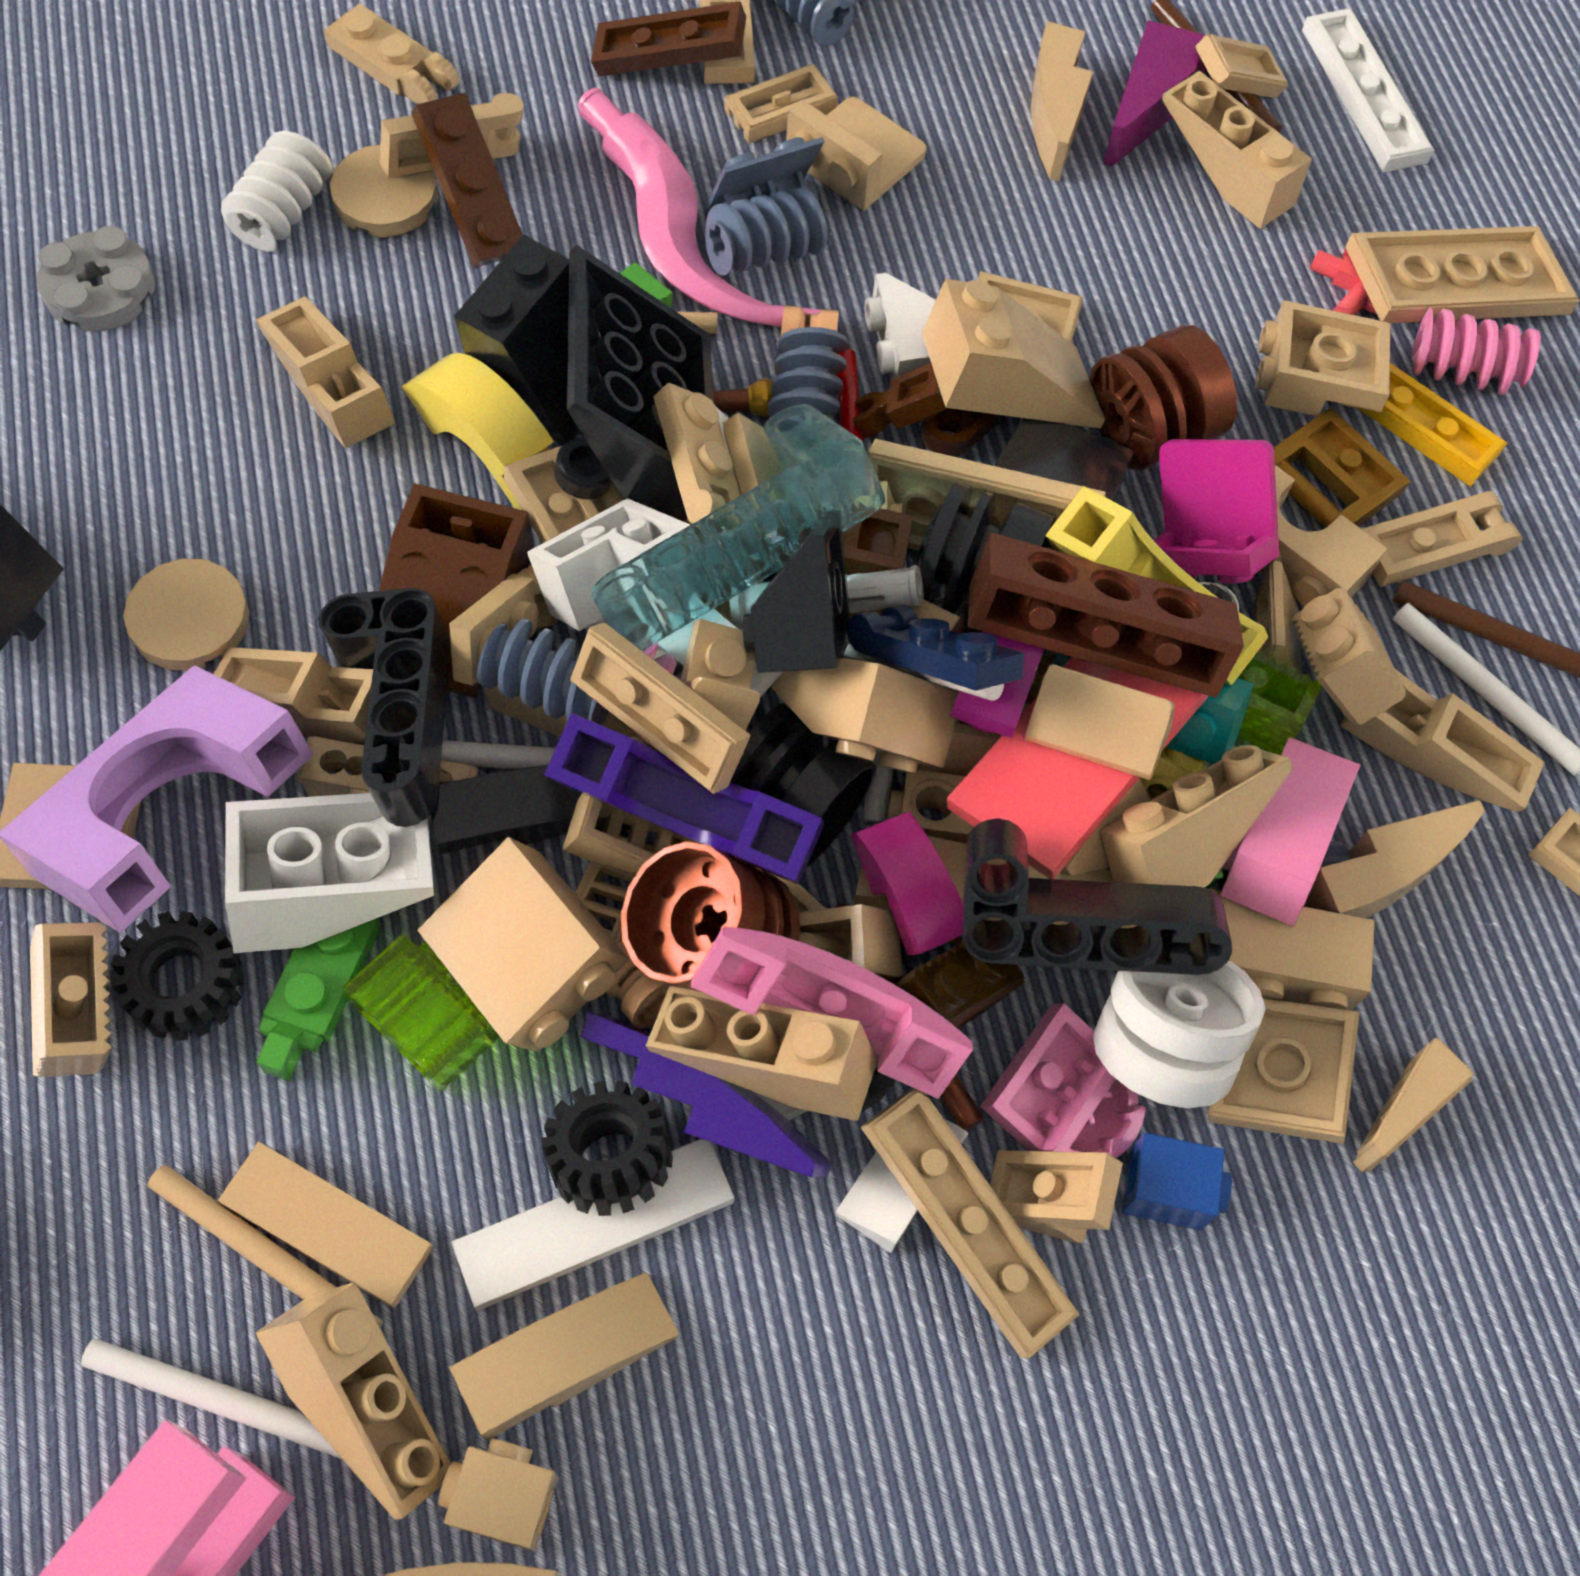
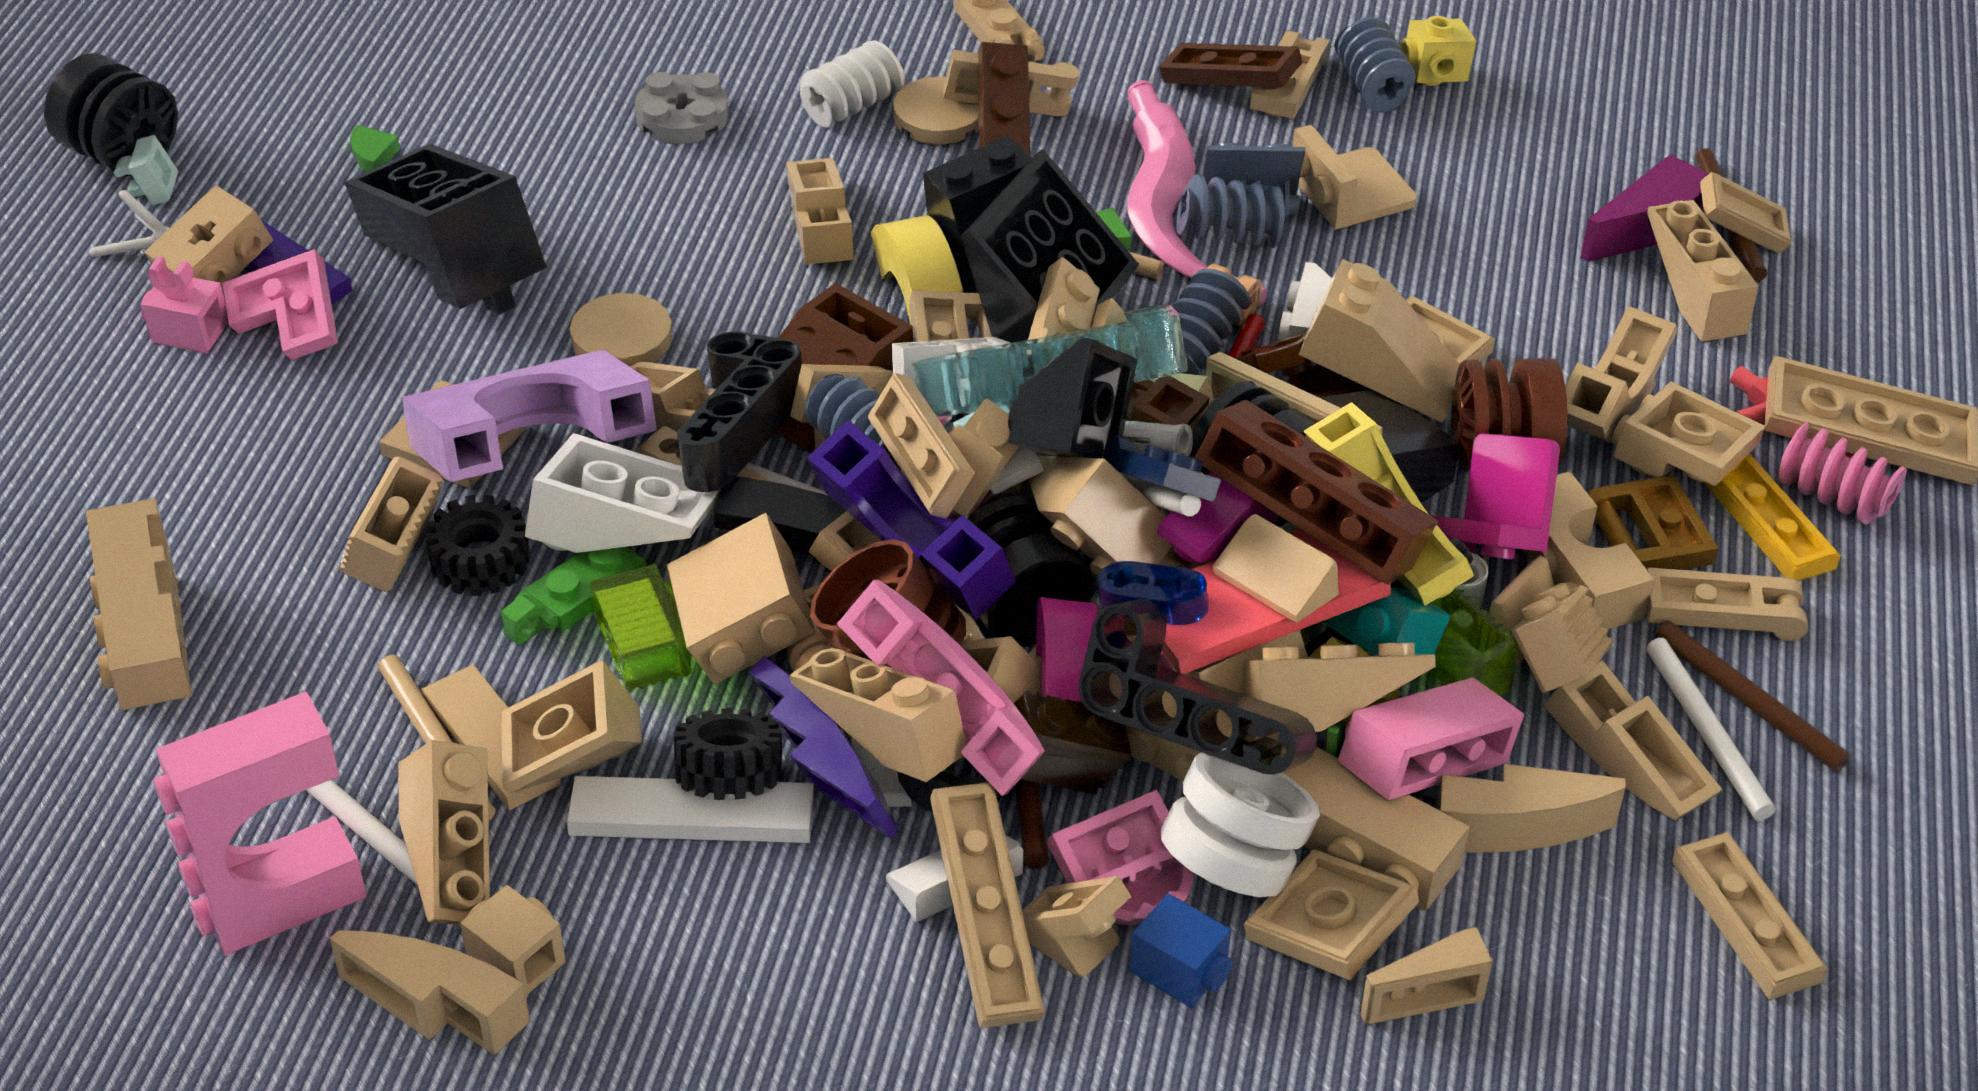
camera: 30 degrees right, 20 degrees down
(423, 1204) = (568, 728): none -> tan slope
(562, 1354) = (614, 872): tan slope -> none
(580, 471) = (967, 312): black tile -> none
(773, 116) = (1336, 131): tan tile -> none
(984, 793) = (1175, 590): none -> clear blue beam
(1058, 95) = (1562, 191): tan slope -> none
(1230, 303) = (1622, 377): none -> tan arch
(1367, 90) = (1872, 269): white tile -> none

